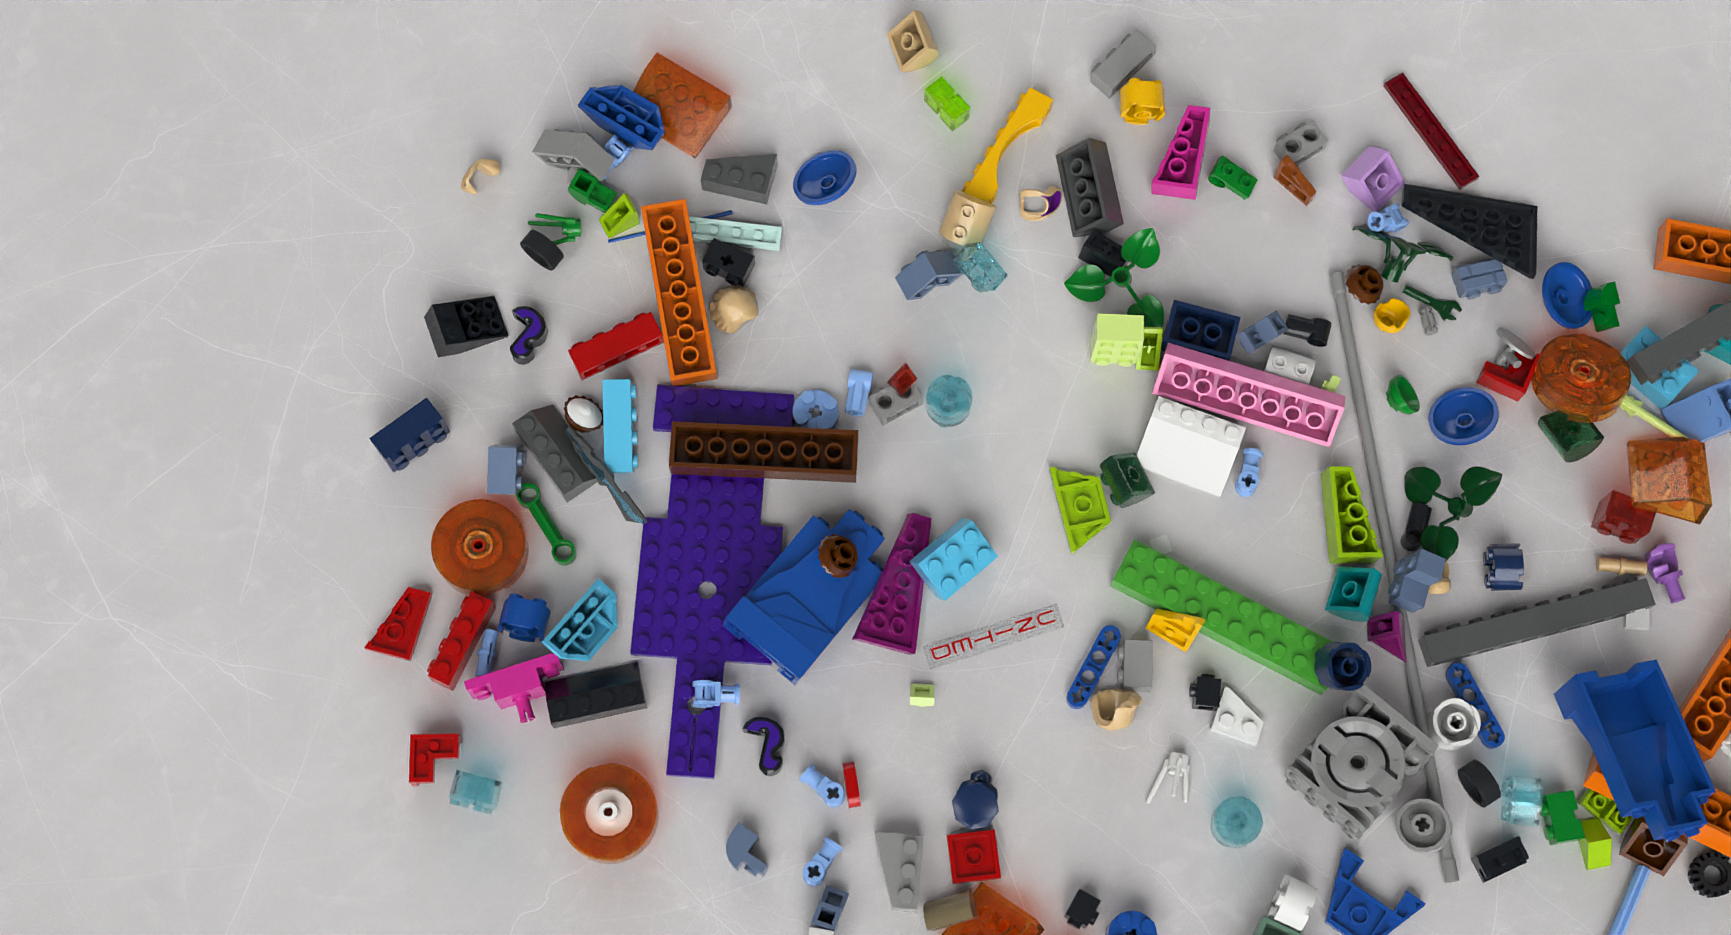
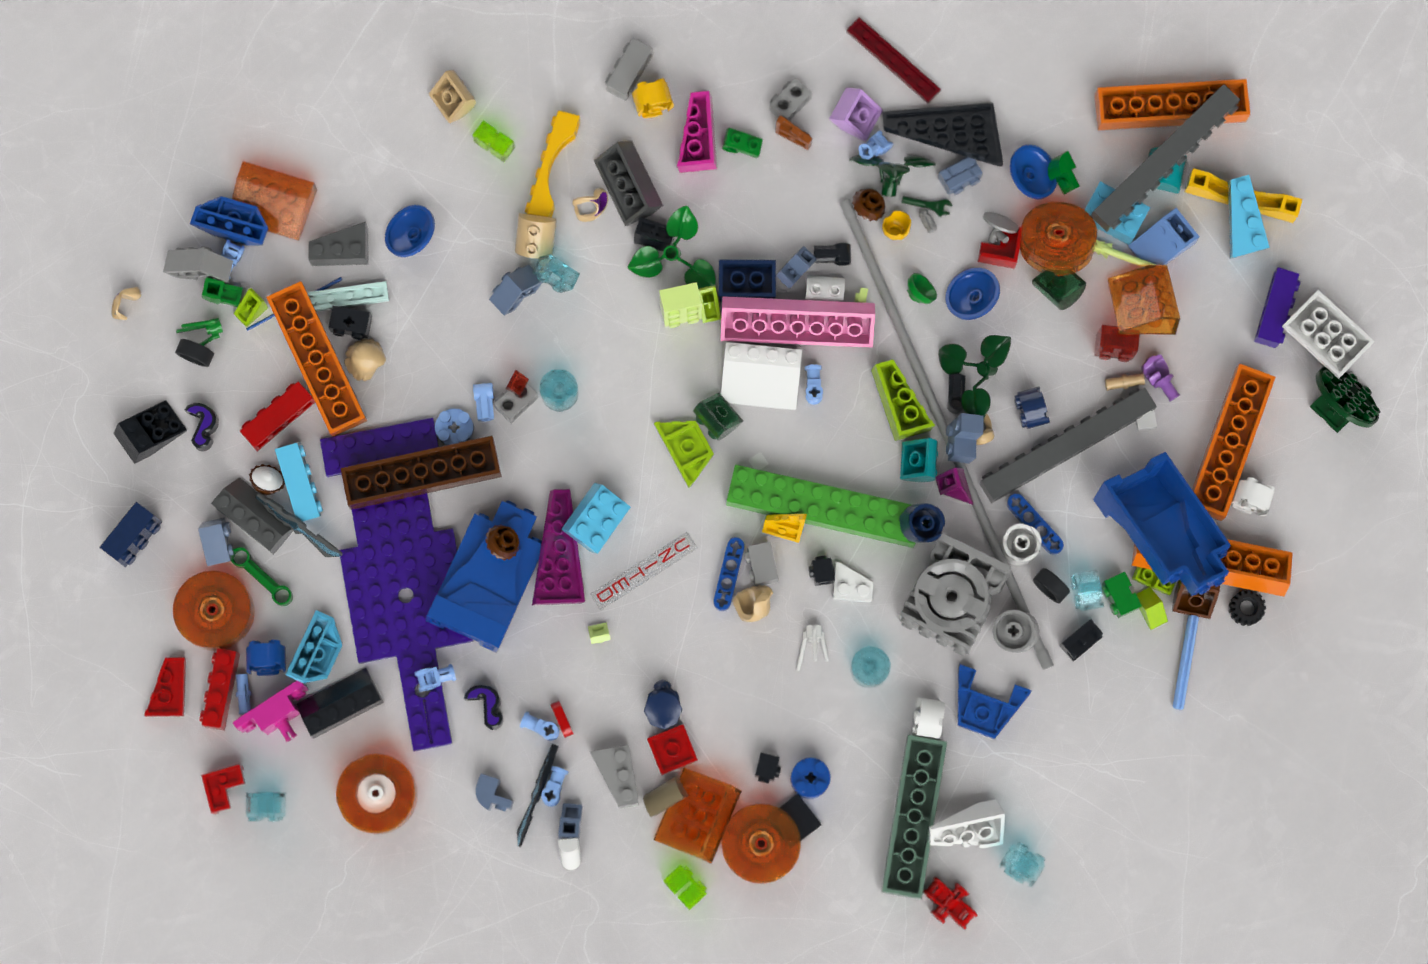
camera: 15 degrees left, 5 degrees up
(798, 865) = (536, 794): none -> black sword

